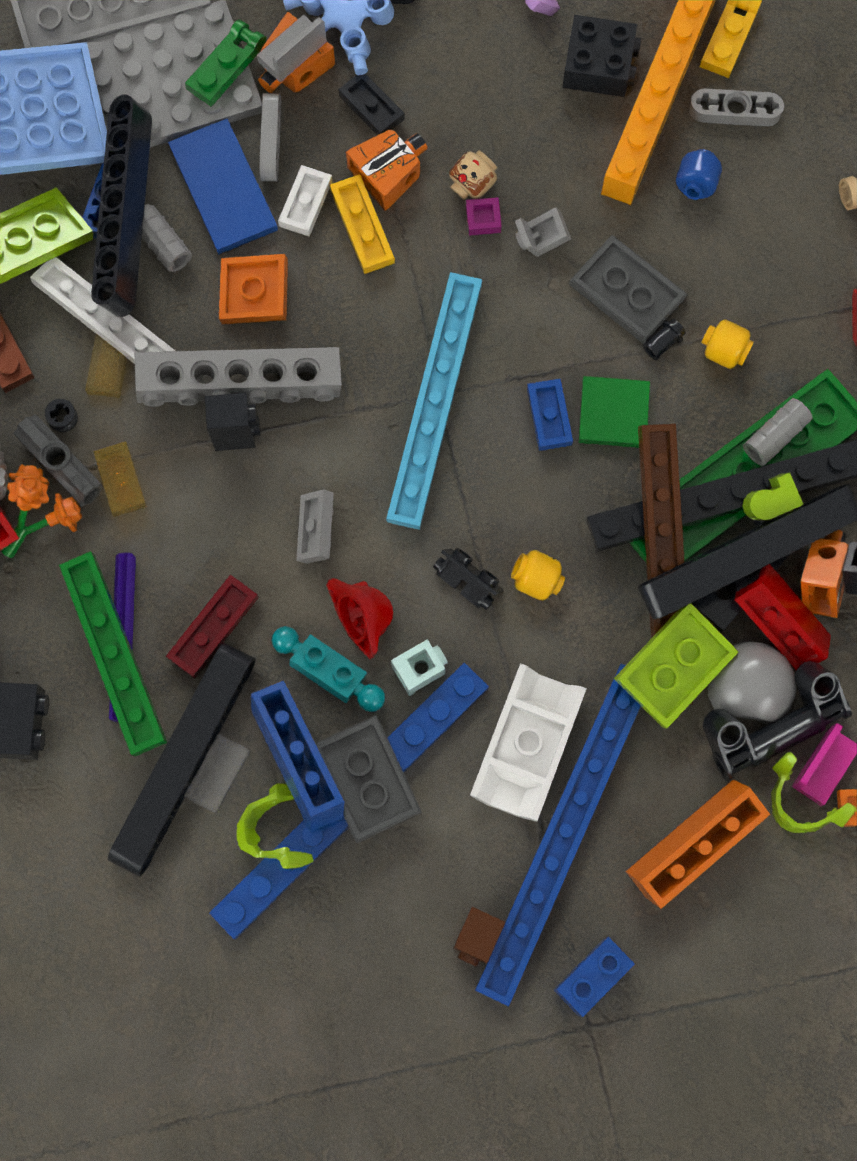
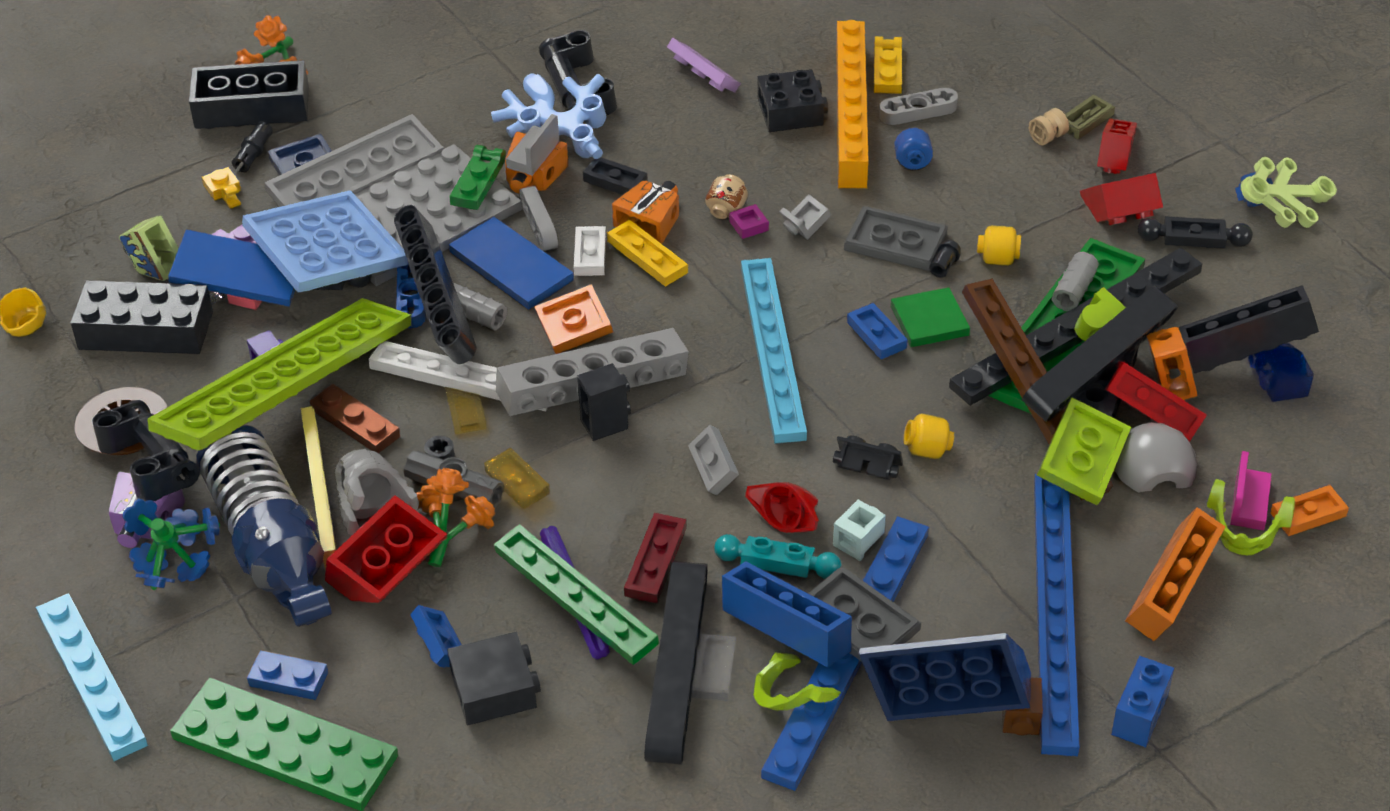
camera: 20 degrees left, 30 degrees down
(412, 897) = (949, 676): none -> dark blue slope
(527, 744) = (987, 558): white piece -> none
(738, 750) = (1163, 497): black piece -> none

